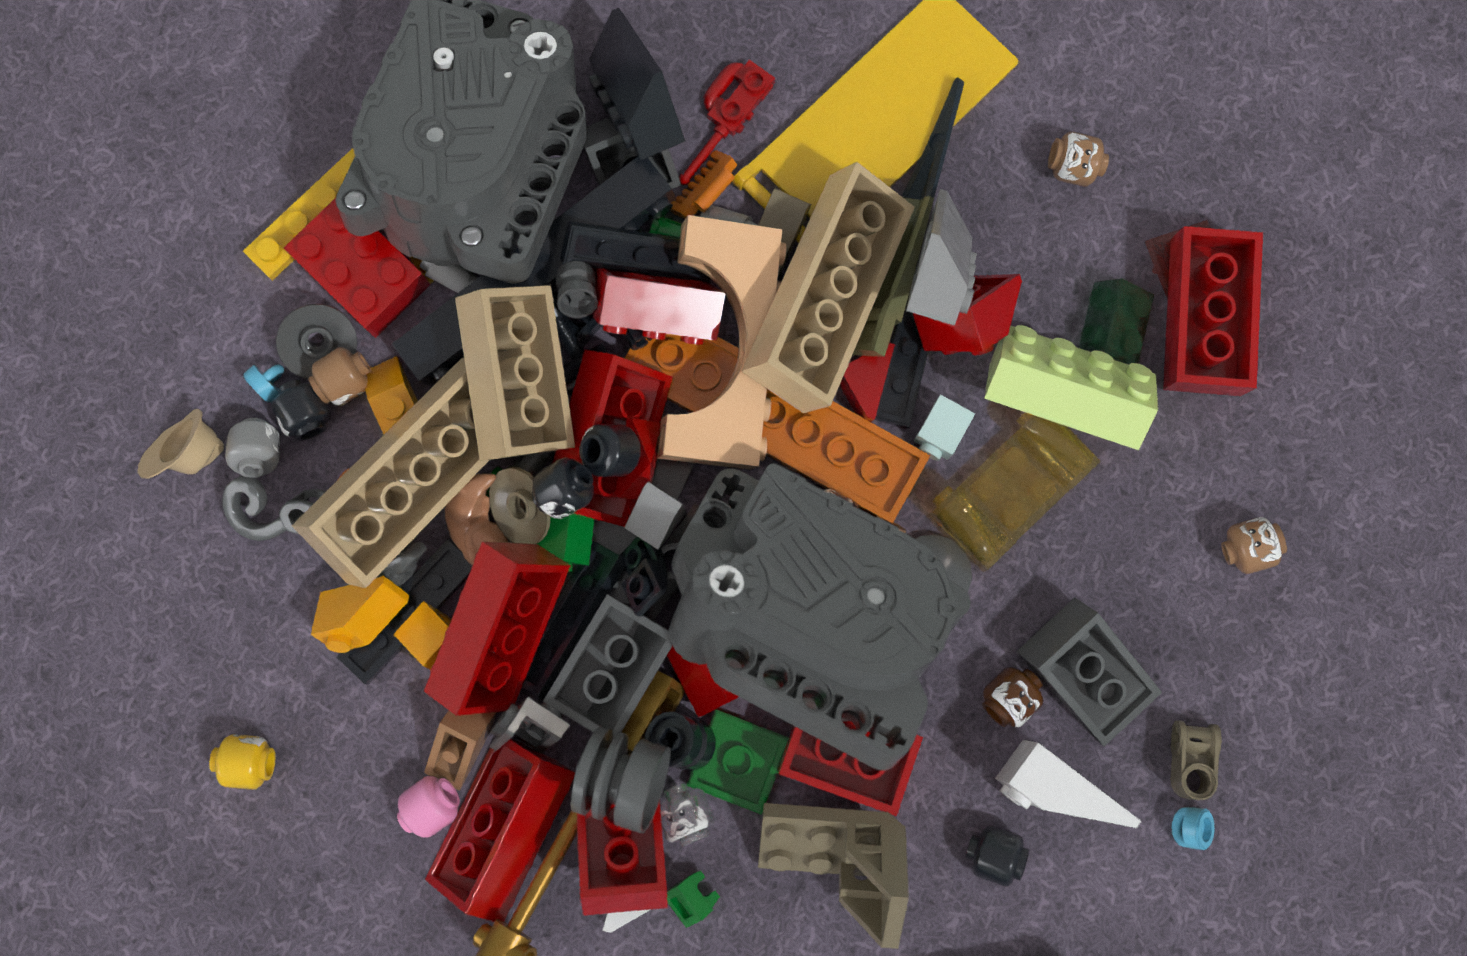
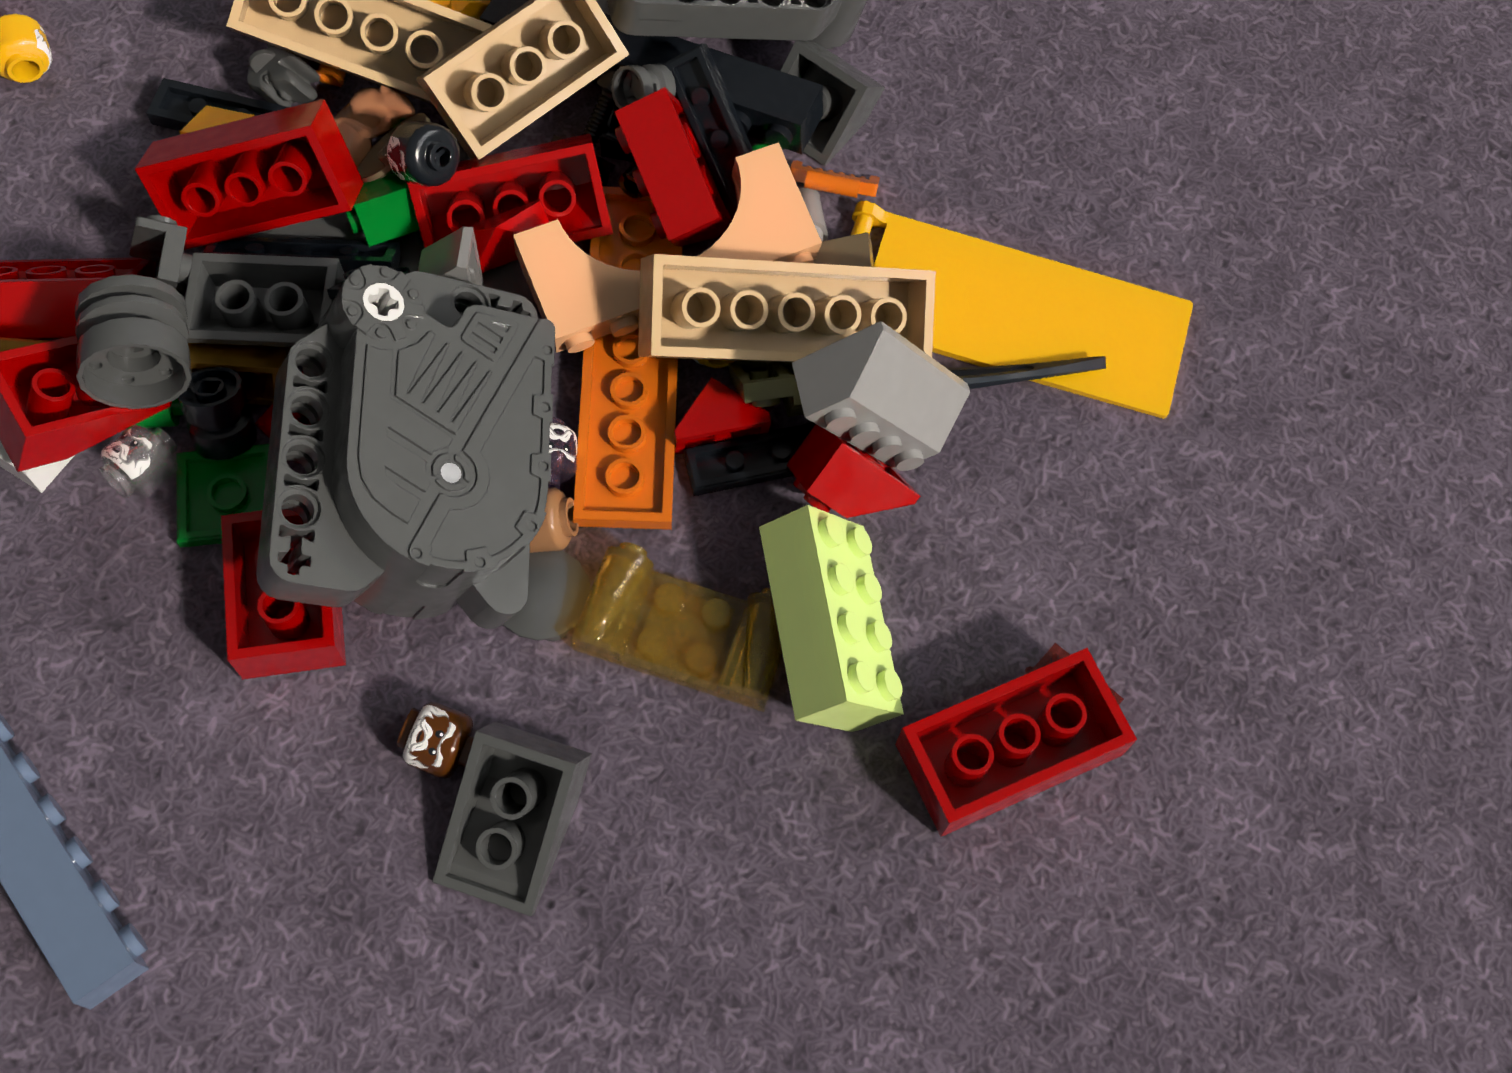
camera: 55 degrees right, 15 degrees down
(356, 615) = (211, 67): light orange slope -> none
(428, 806) = (42, 222): bright pink head -> none
(458, 746) = (111, 218): medium nougat slope -> none
(610, 450) = (489, 182): black head -> none
(633, 89) = (879, 49): black slope -> none
(688, 901) = (41, 515): green tile -> none
(733, 112) = (930, 175): red piece -> none
(846, 845) = (171, 639): dark tan bracket -> none
(943, 428) = (709, 522): light aqua brick -> none
(998, 855) = (239, 814): black head -> none
(1045, 781) = (347, 822): white slope -> none
(1078, 158) = (1097, 517): medium nougat head -> none
(1117, 320) = (943, 652): clear green bracket -> none
(1193, 828) = (380, 1037): medium azure tile -> none
(1196, 756) = (468, 989): dark tan piece -> none
(1254, 545) = (765, 932): medium nougat head -> none

